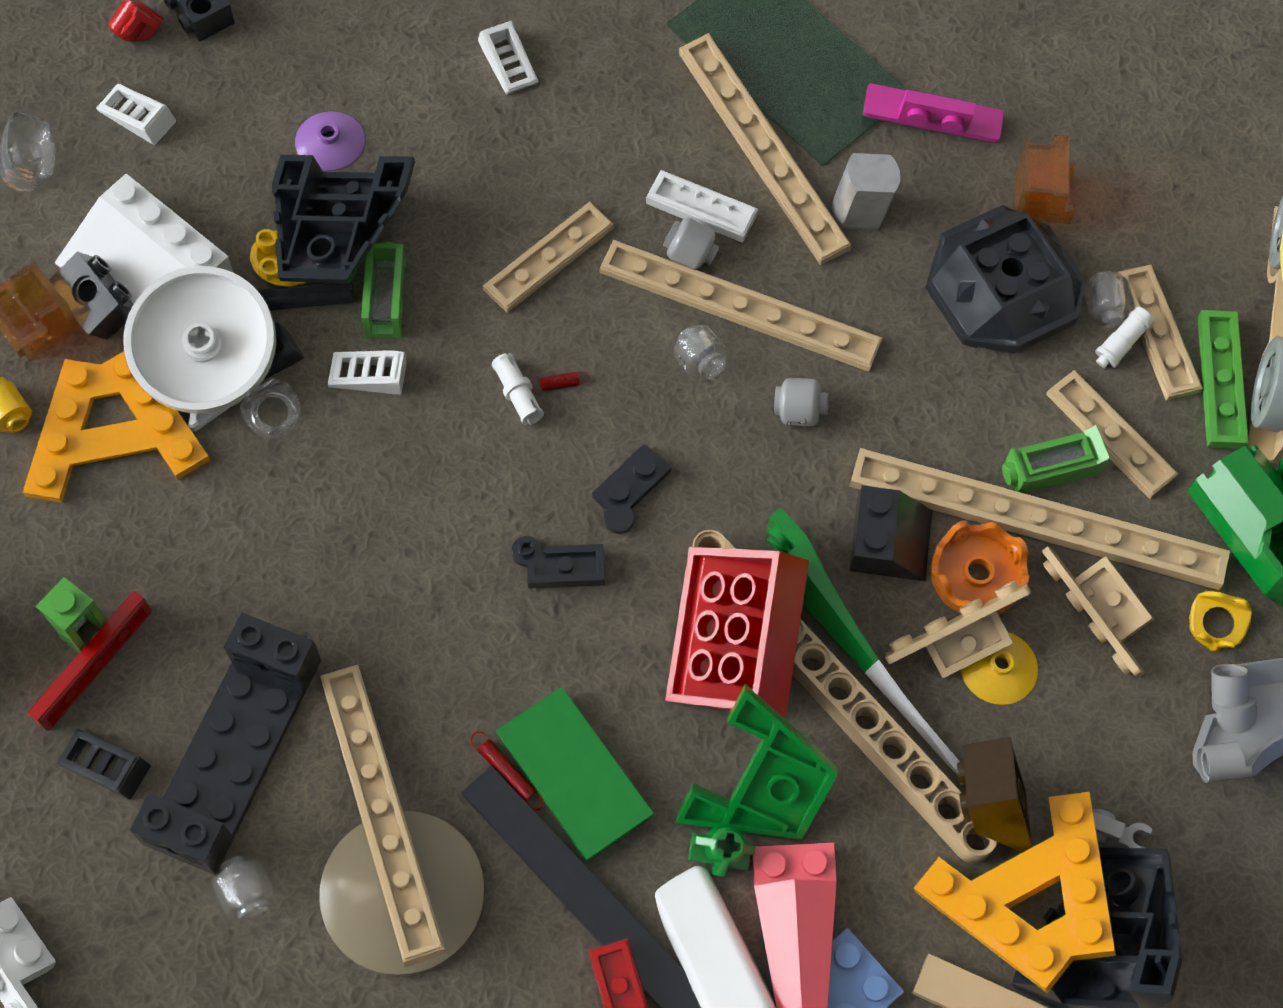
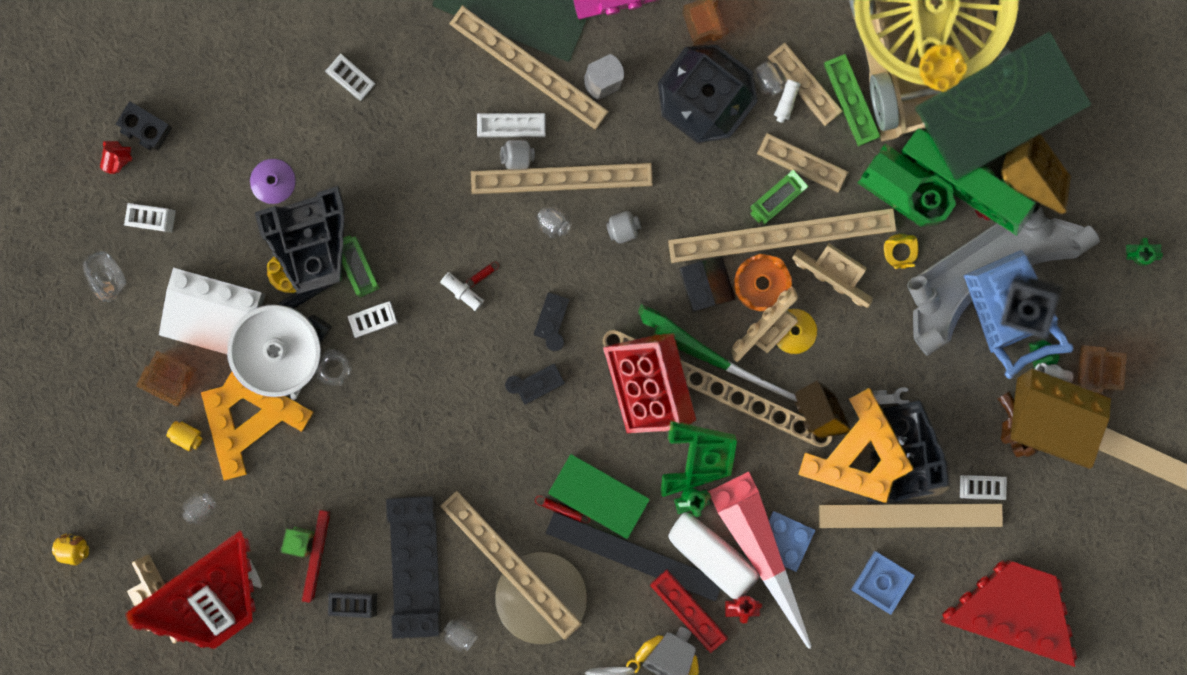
camera: 25 degrees left, 20 degrees up
(77, 284) = (184, 350): brick -> none
(548, 257) = (438, 198): tan tile -> none

